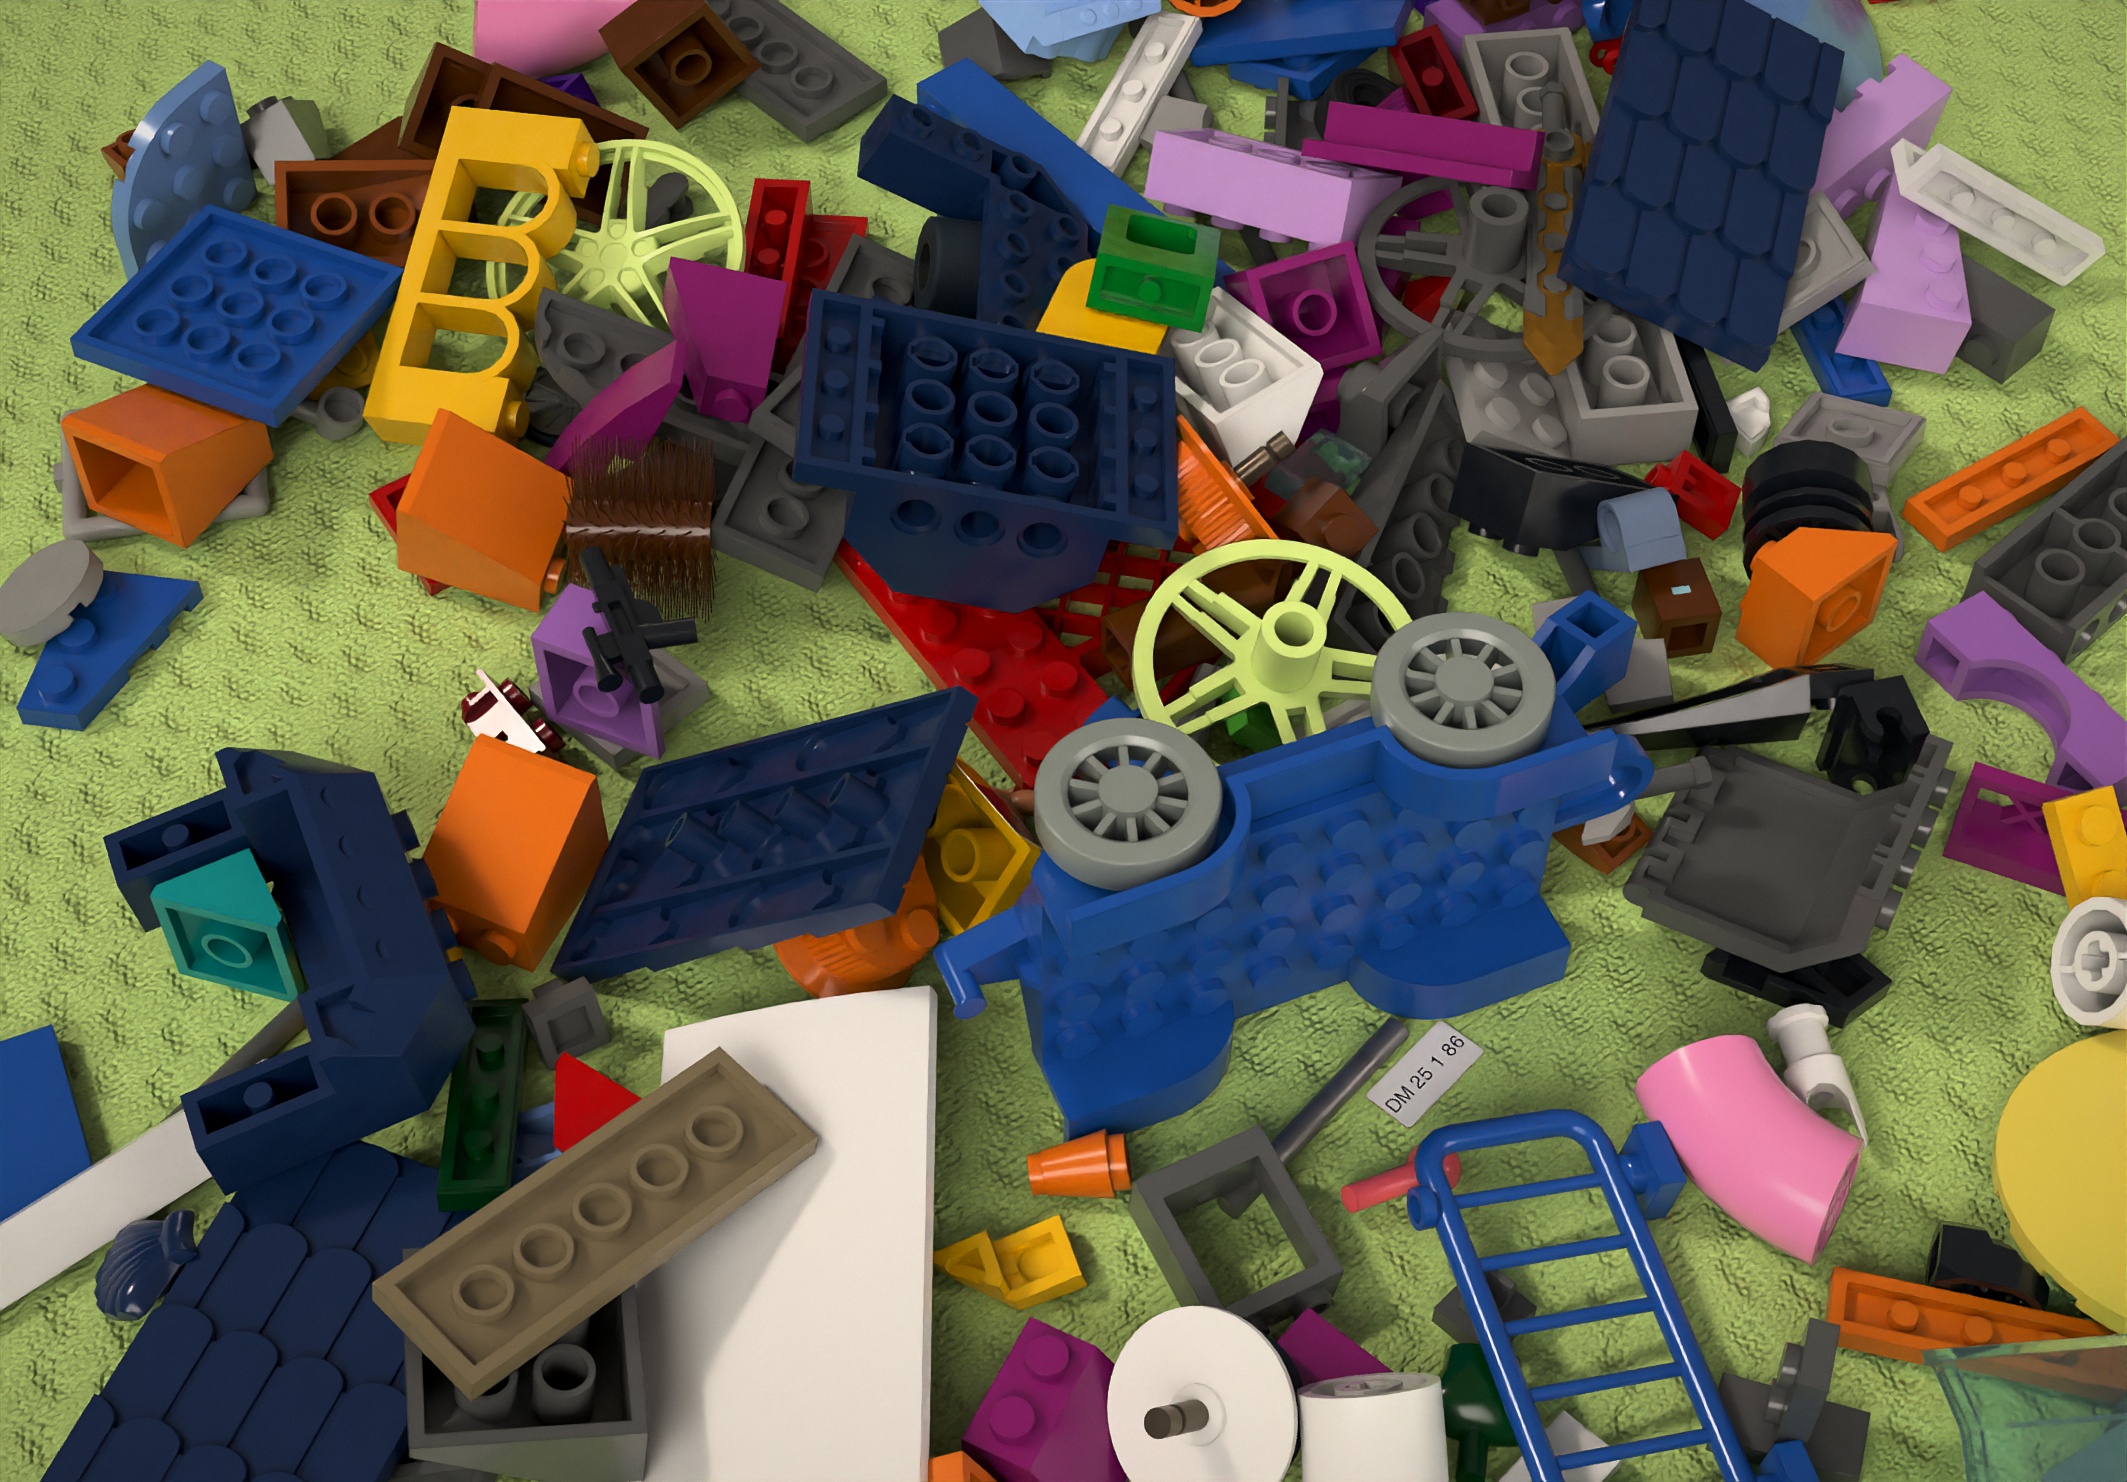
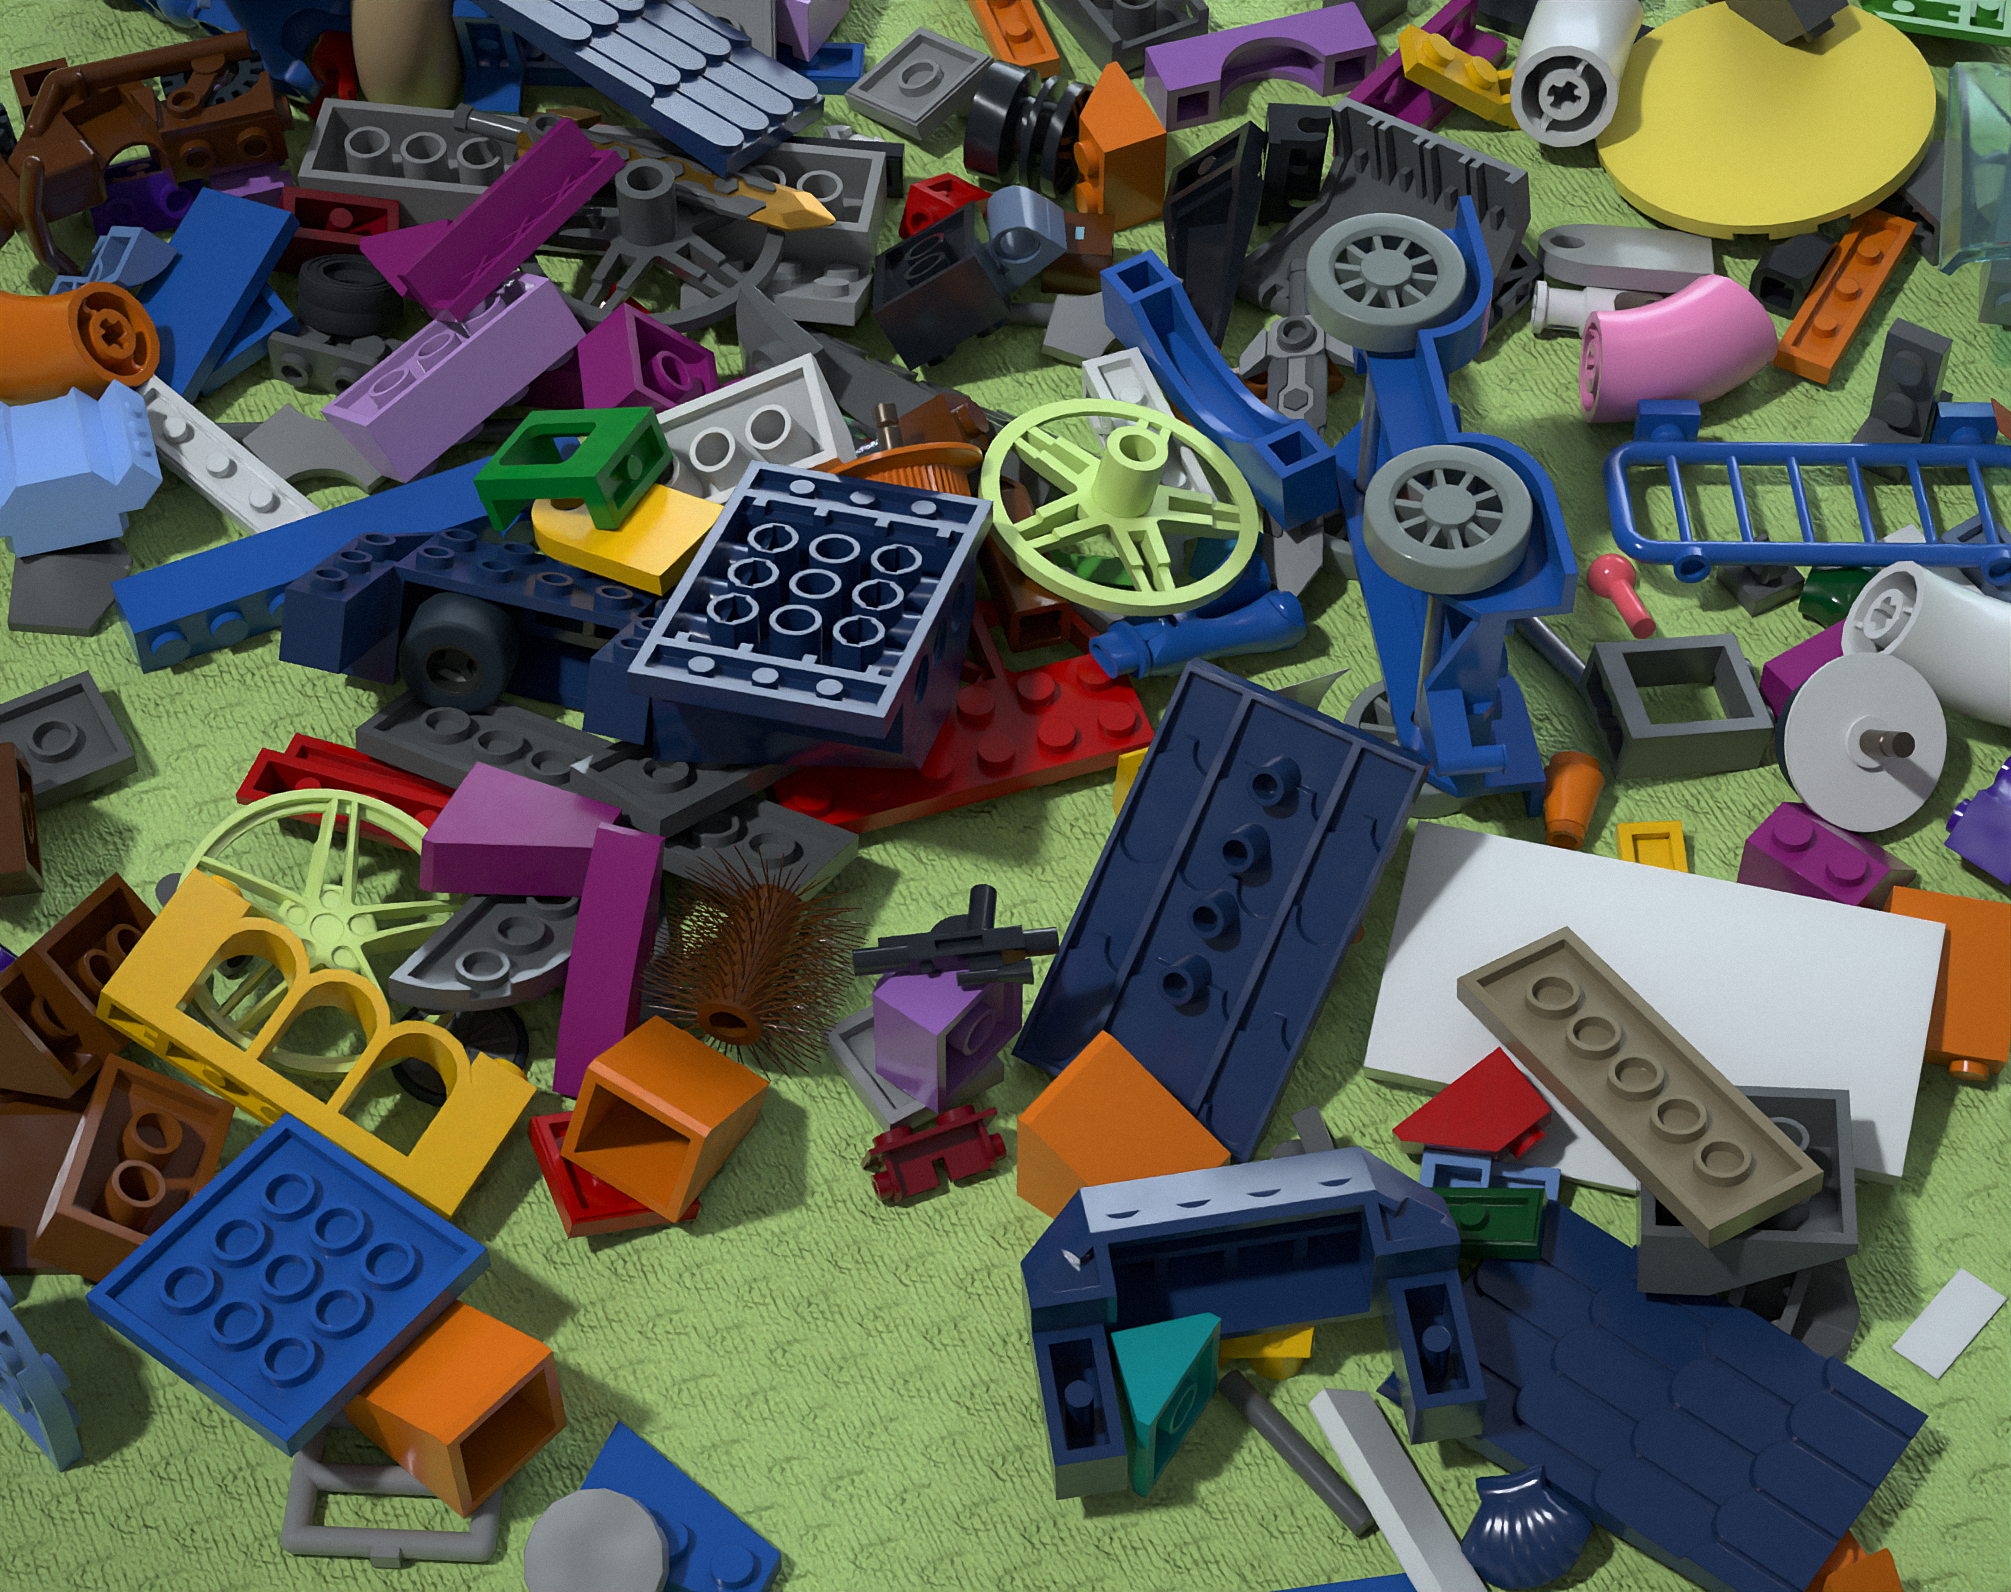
camera: 75 degrees left, 0 degrees up
(1912, 1098) = (1625, 257): none -> light grey tile

